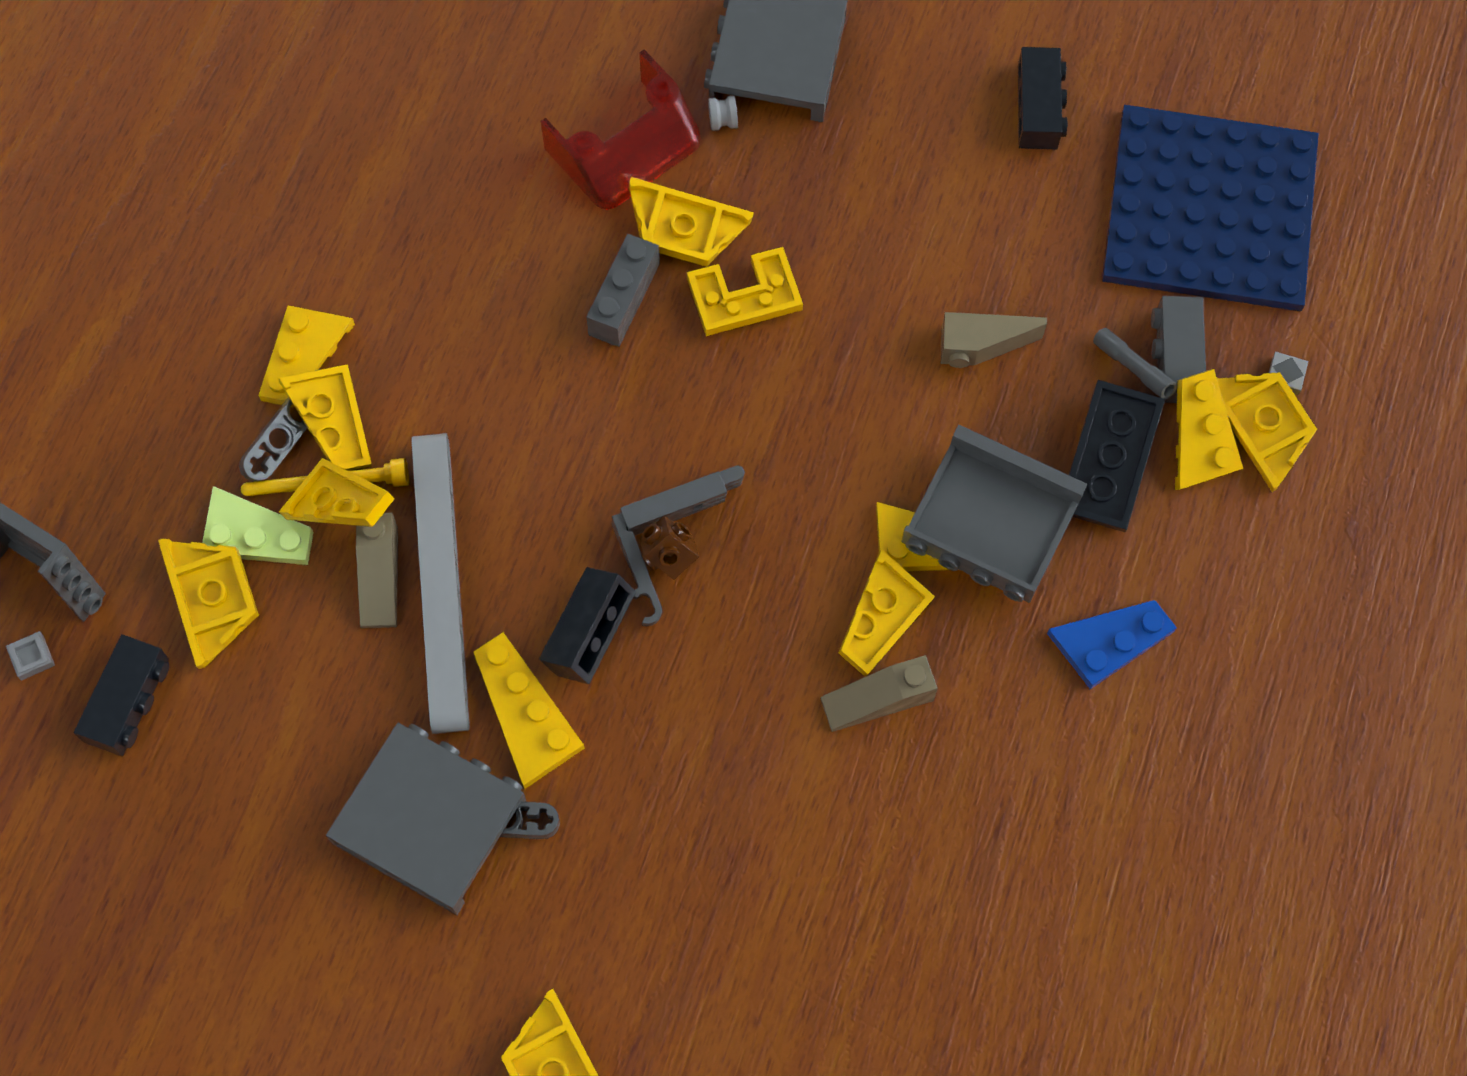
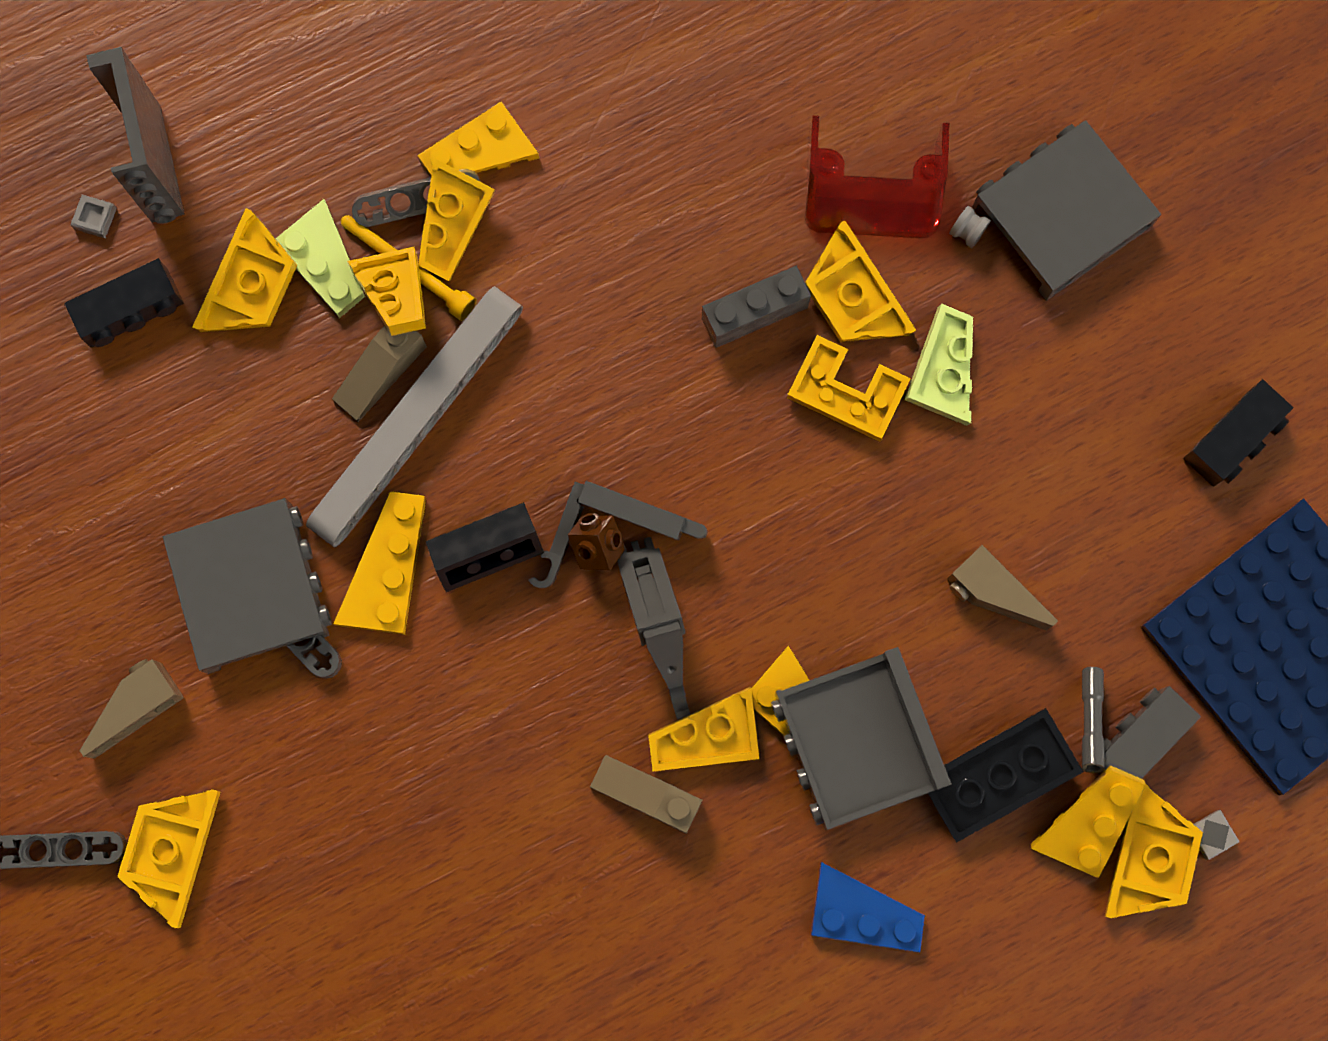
camera: 45 degrees right, 10 degrees up
(422, 978) = (134, 703): none -> dark tan slope
(766, 553) = (656, 615): none -> dark grey hinge
(797, 222) = (943, 370): none -> yellowish green wing

